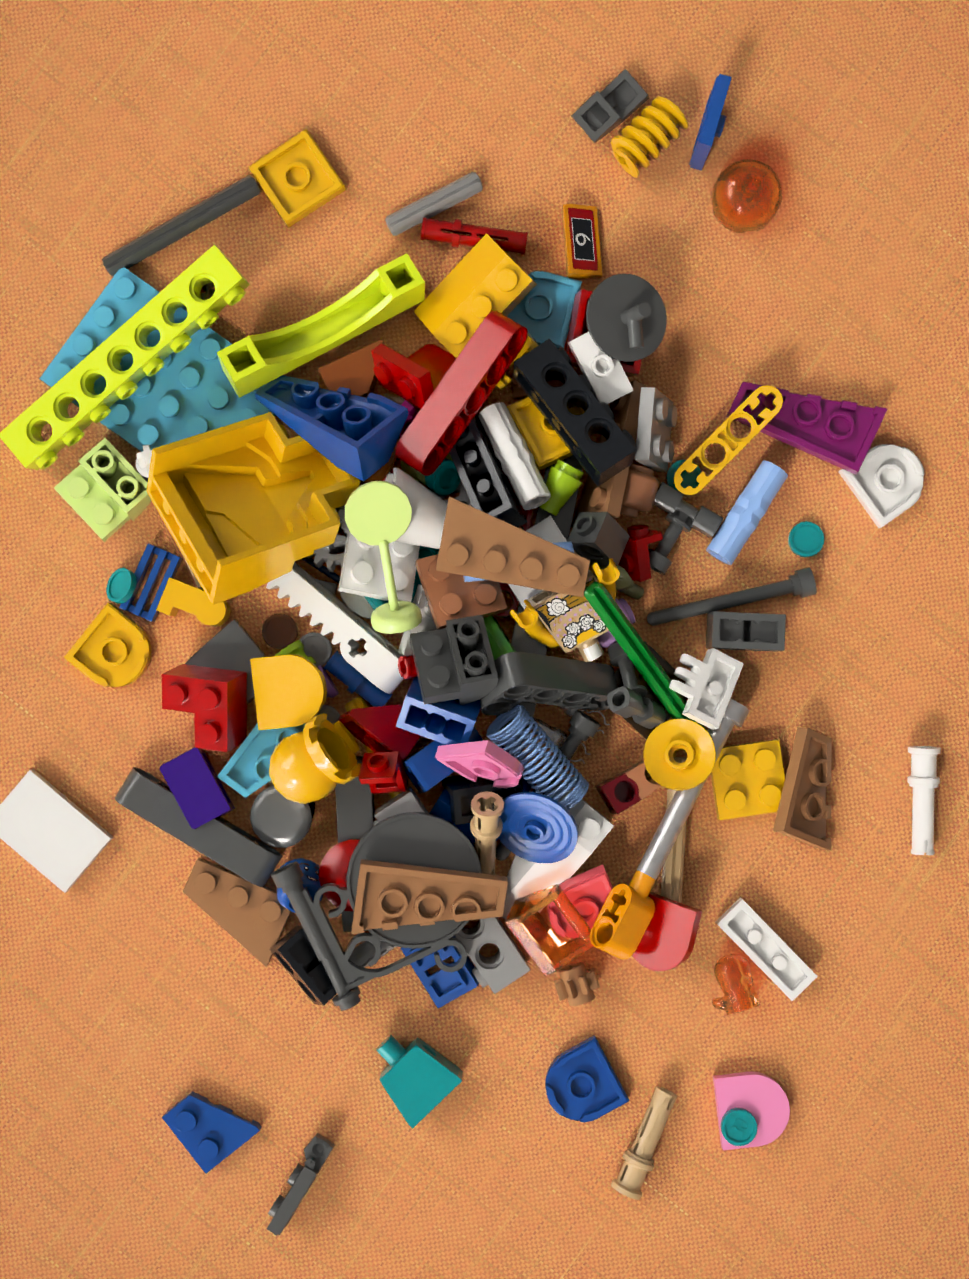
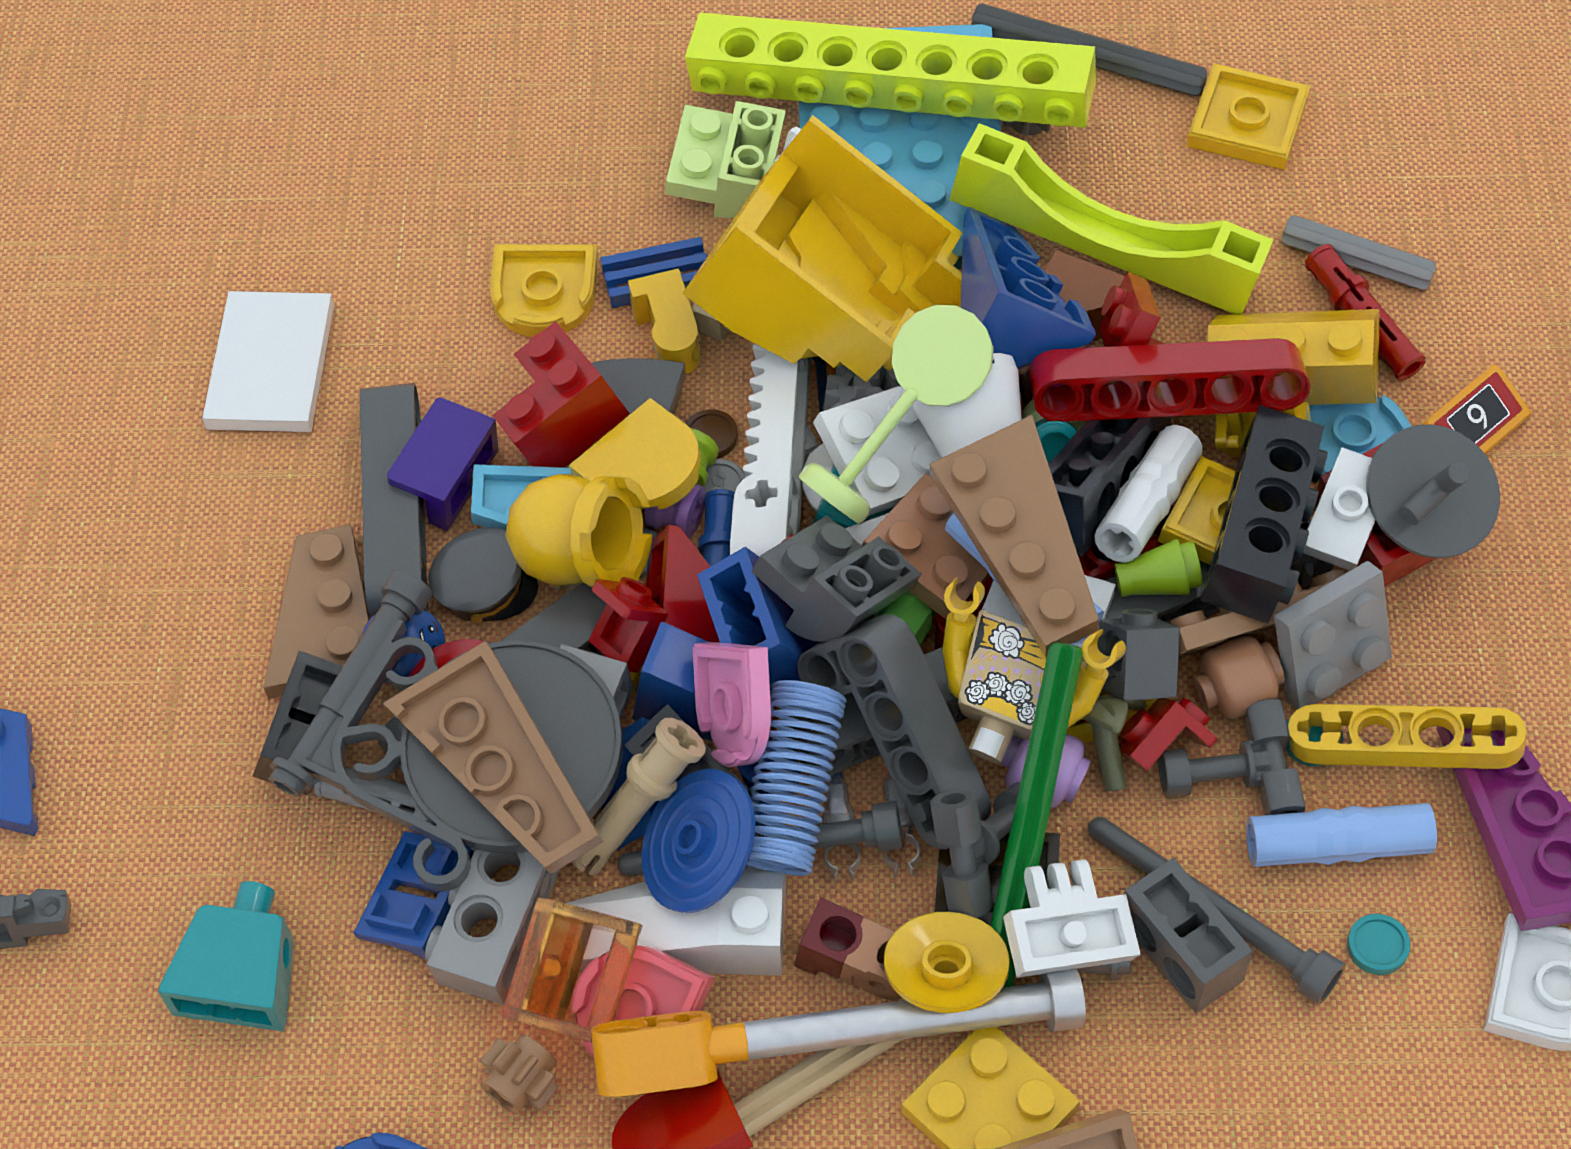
camera: 55 degrees right, 30 degrees down
(121, 585) = (627, 243): teal piece -> none

